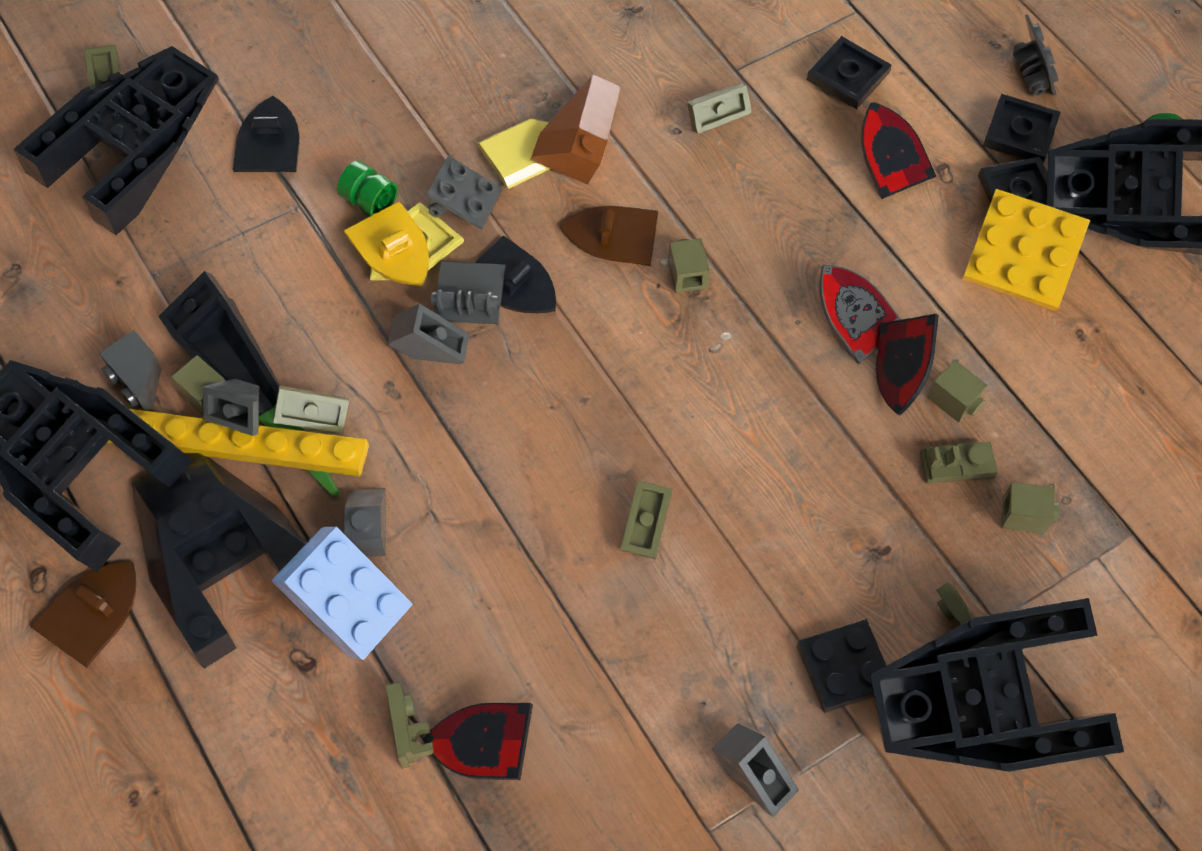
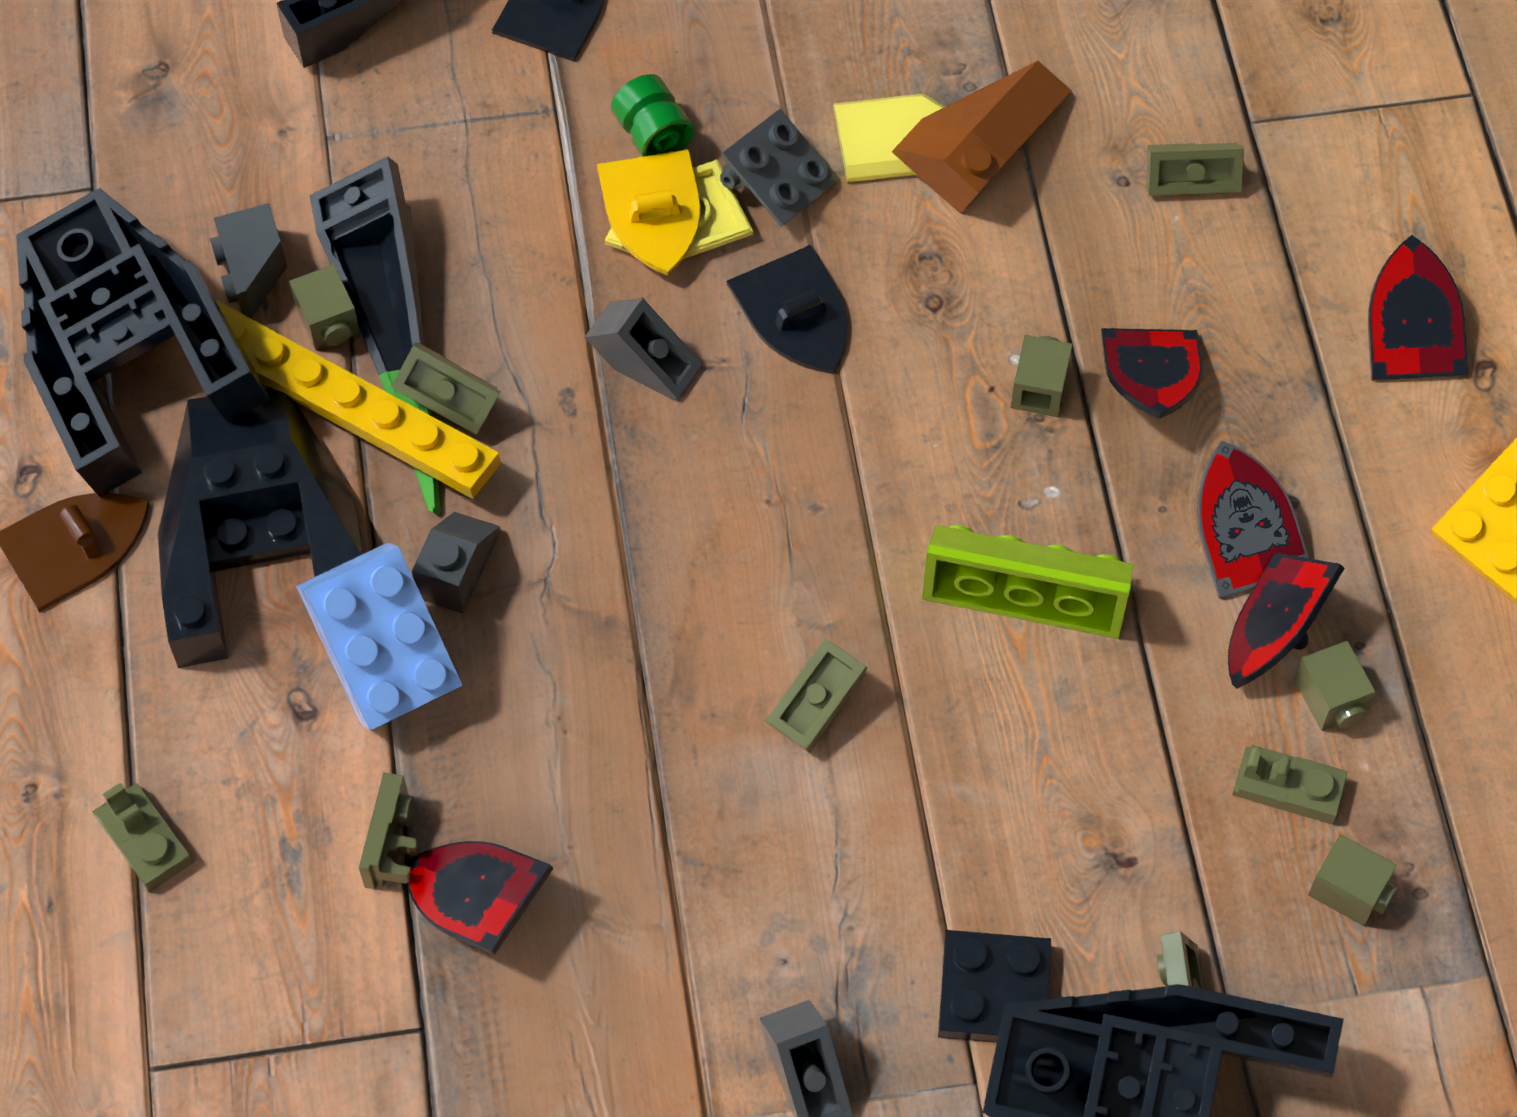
camera: 25 degrees right, 0 degrees up
(230, 796) = (141, 835): none -> olive plate
(232, 405) = (351, 347): dark grey slope -> none
(469, 292) = (725, 307): dark grey hinge -> none
(614, 233) = (965, 295): reddish brown shield -> none
(744, 395) = (1027, 580): none -> lime slope
(753, 236) = (1153, 367): none -> shield
(849, 72) = (1412, 180): black plate -> none

